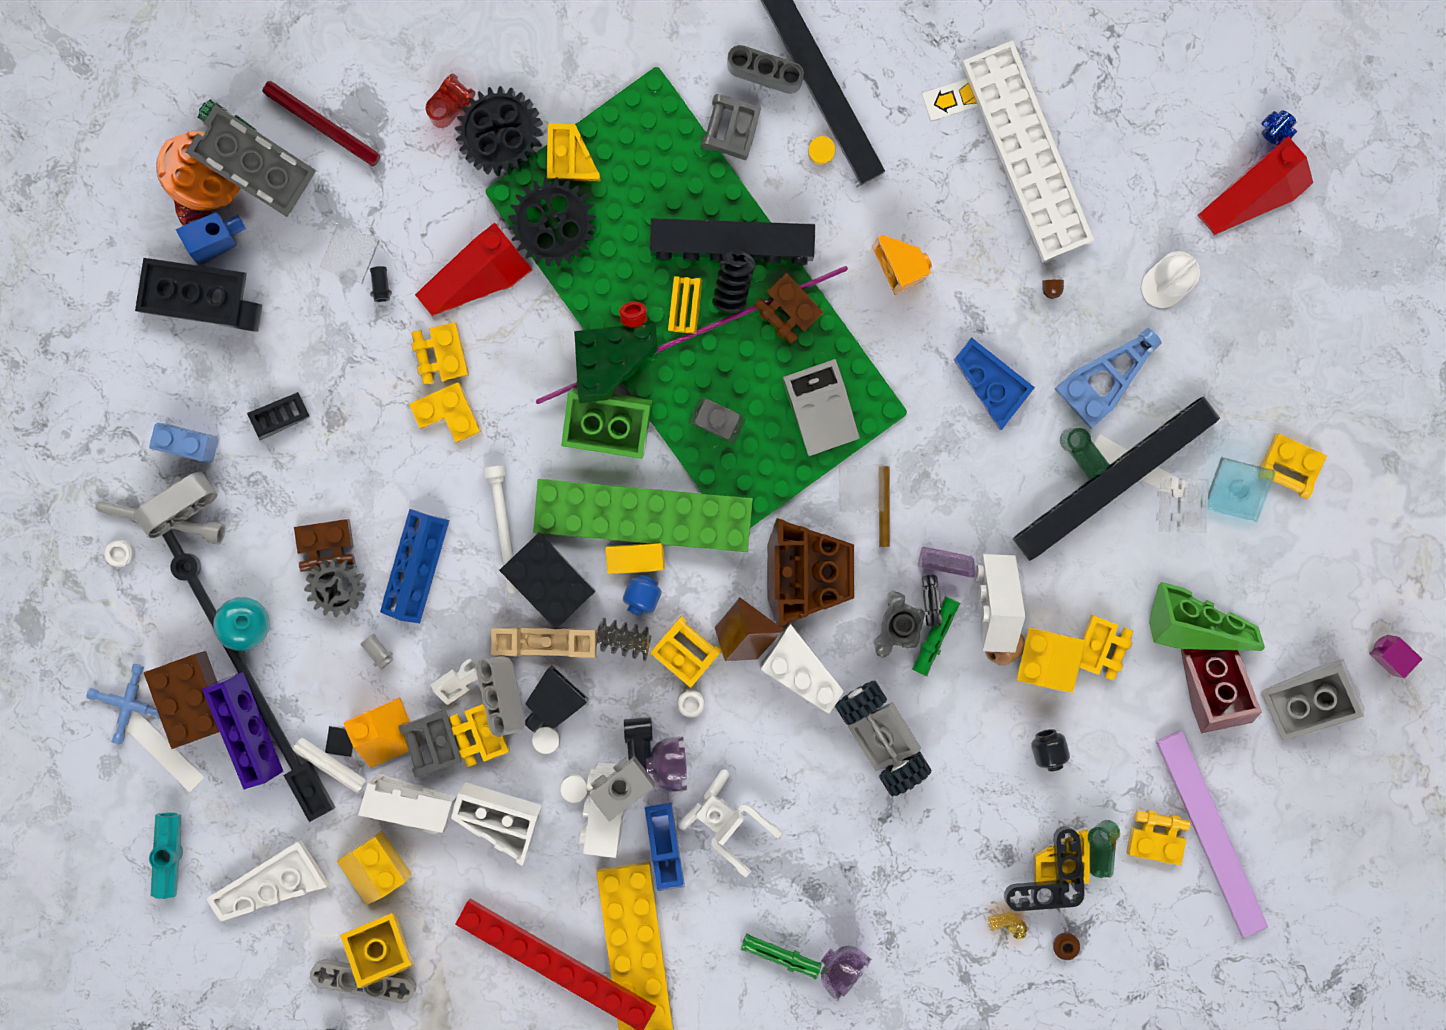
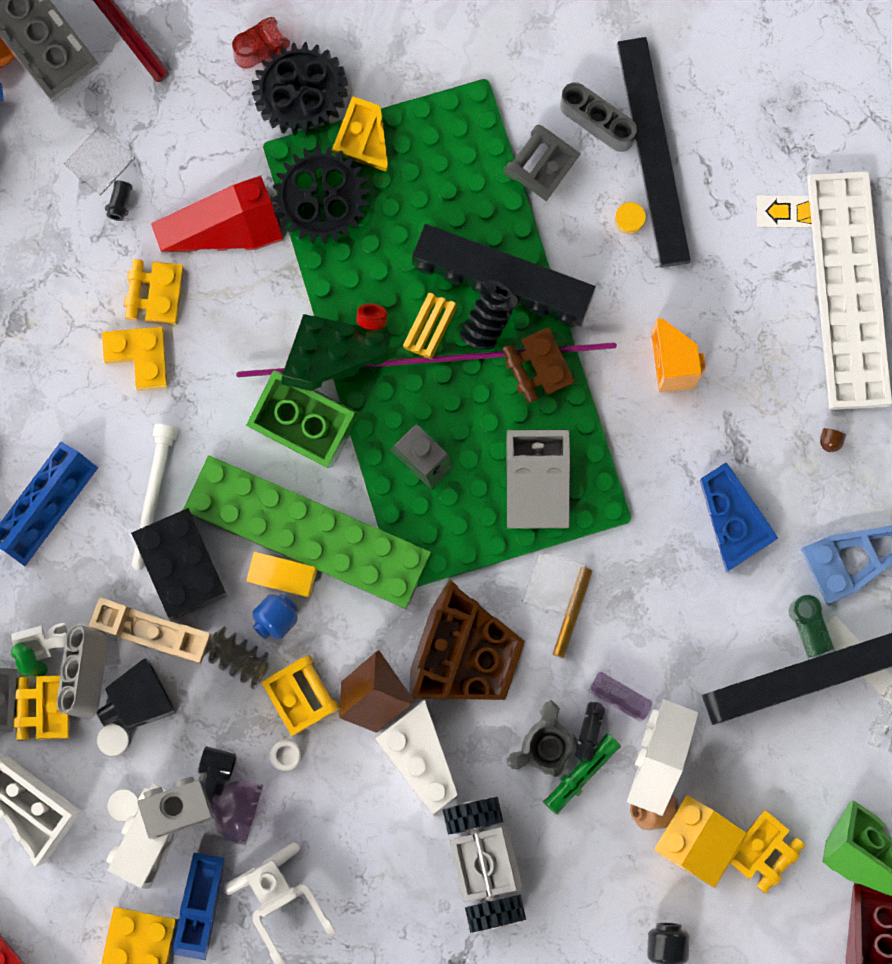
camera: 20 degrees right, 10 degrees down
(451, 703) = (27, 662): none -> green arm

